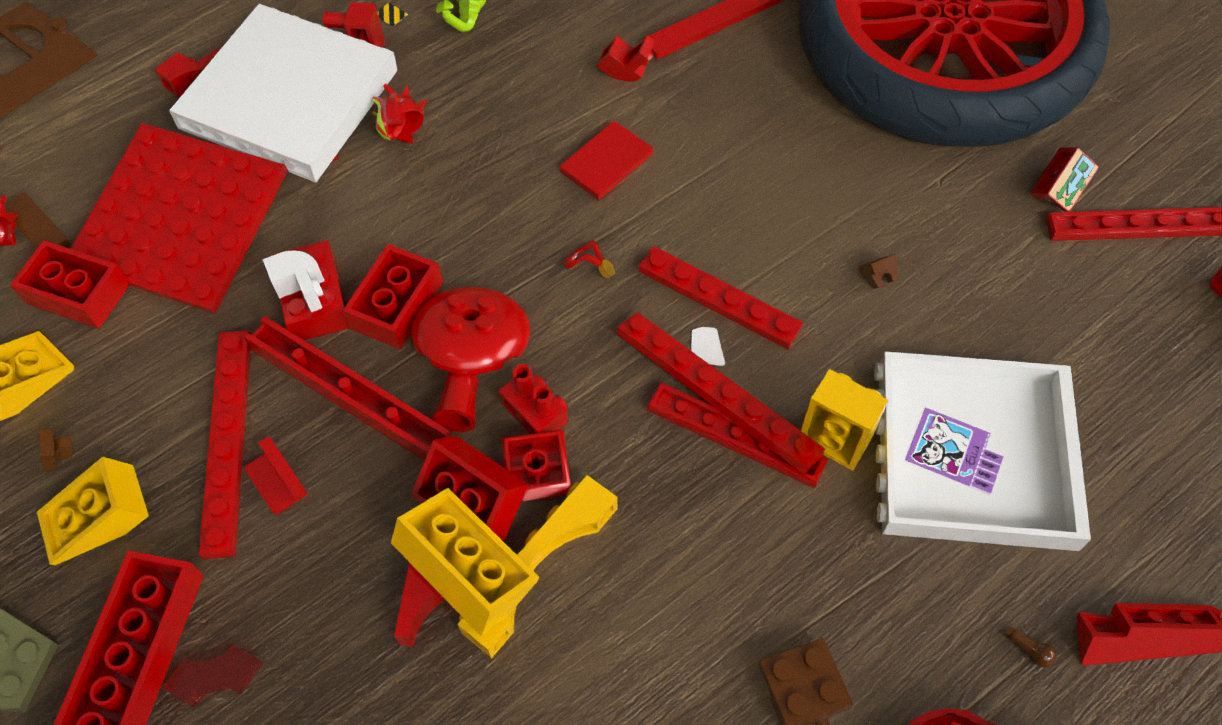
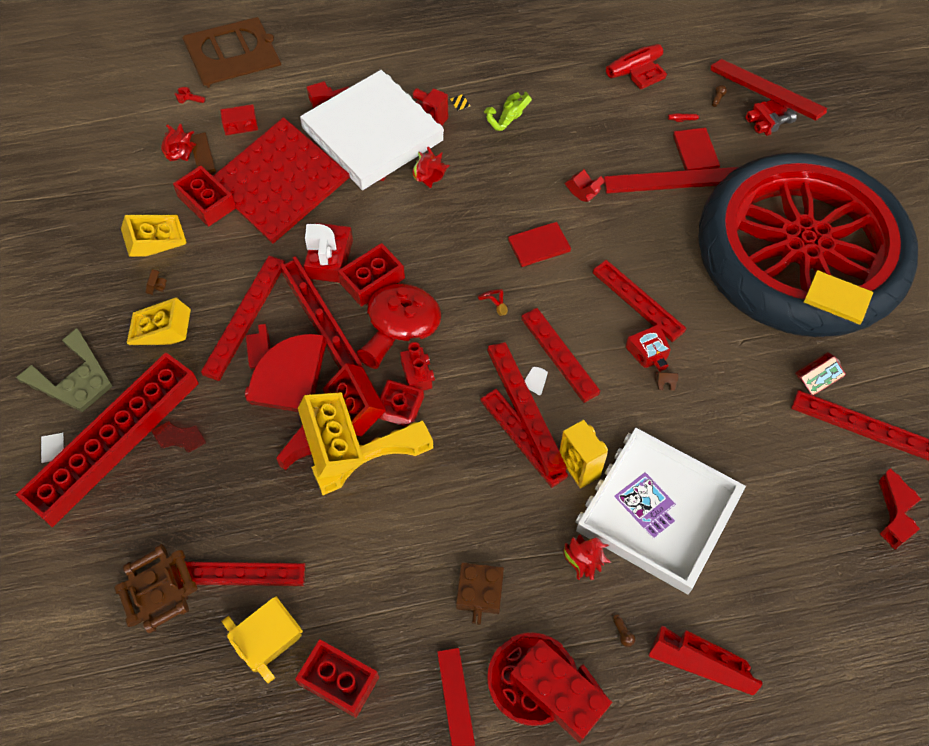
camera: 25 degrees right, 0 degrees up
(71, 153) = (239, 119): none -> red brick
(343, 497) = (287, 373): none -> red brick
(783, 180) = (639, 300): none -> red plate
(835, 237) = (650, 347): none -> red torso
(924, 563) = (585, 555): none -> red hair
(1046, 68) = (838, 297): none -> yellow tile

